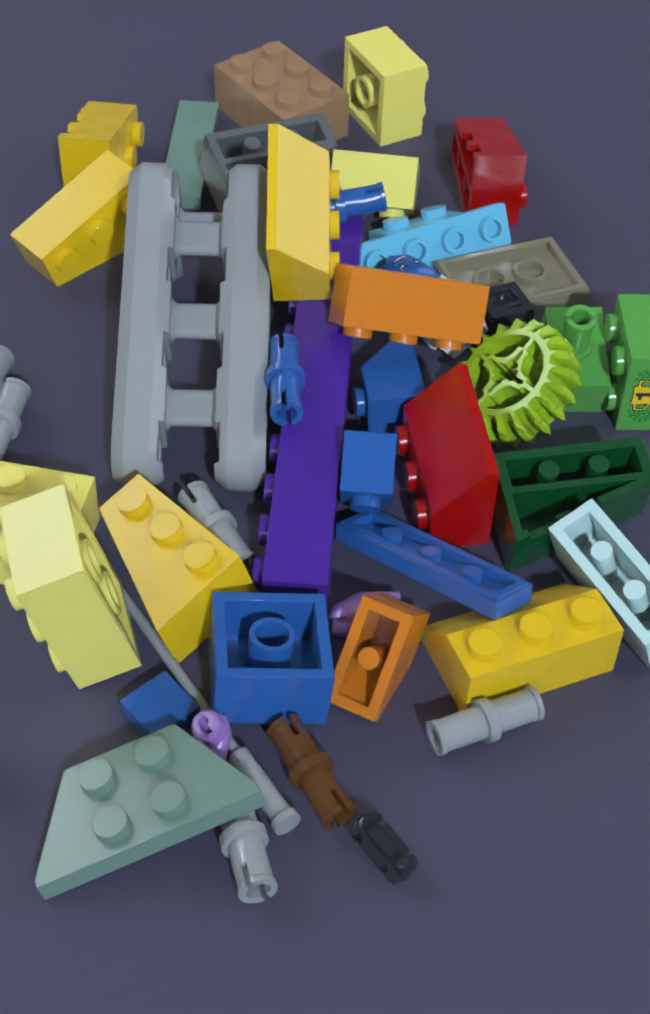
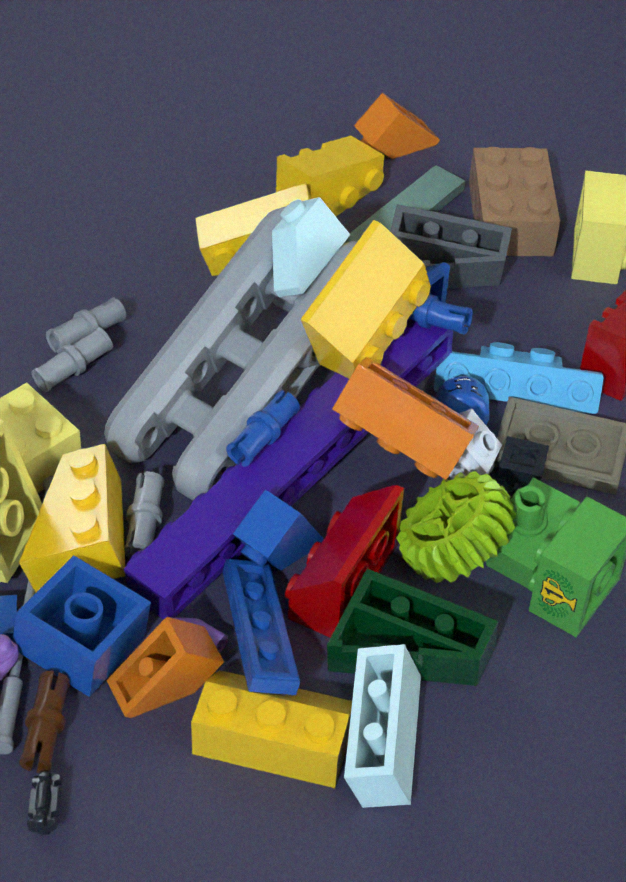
camera: 35 degrees right, 0 degrees up
(115, 80) = (394, 129): none -> orange slope
(196, 188) = (304, 244): none -> light aqua slope
(386, 386) = (364, 472): blue slope -> none
(397, 174) = (518, 309): light yellow slope -> none
(485, 720) = (194, 762): light grey pin -> none

